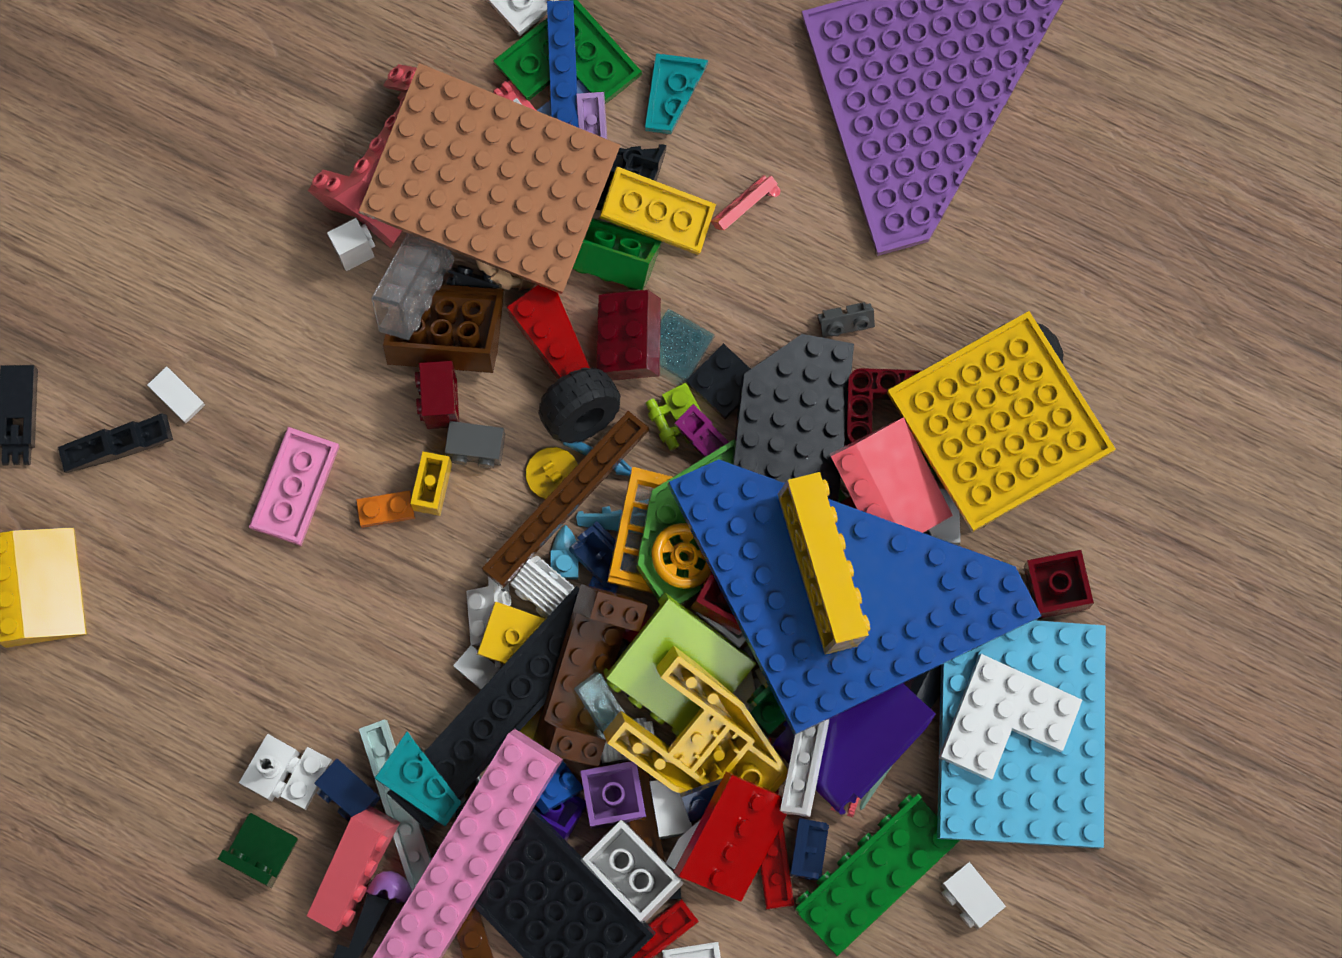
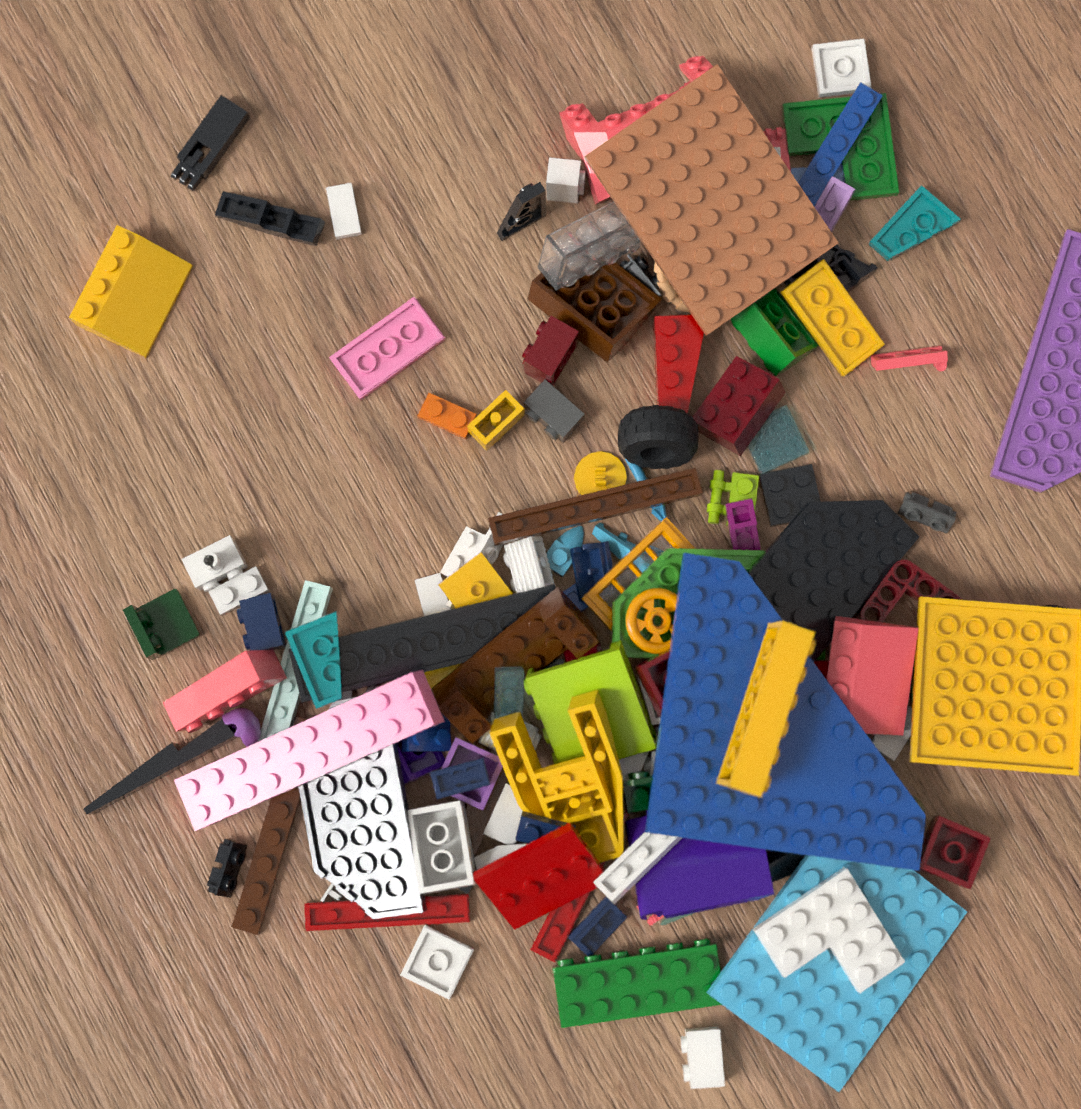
camera: 35 degrees right, 5 degrees up
(336, 291) = (525, 210): none -> black wing
(608, 801) = (460, 778): none -> dark blue plate

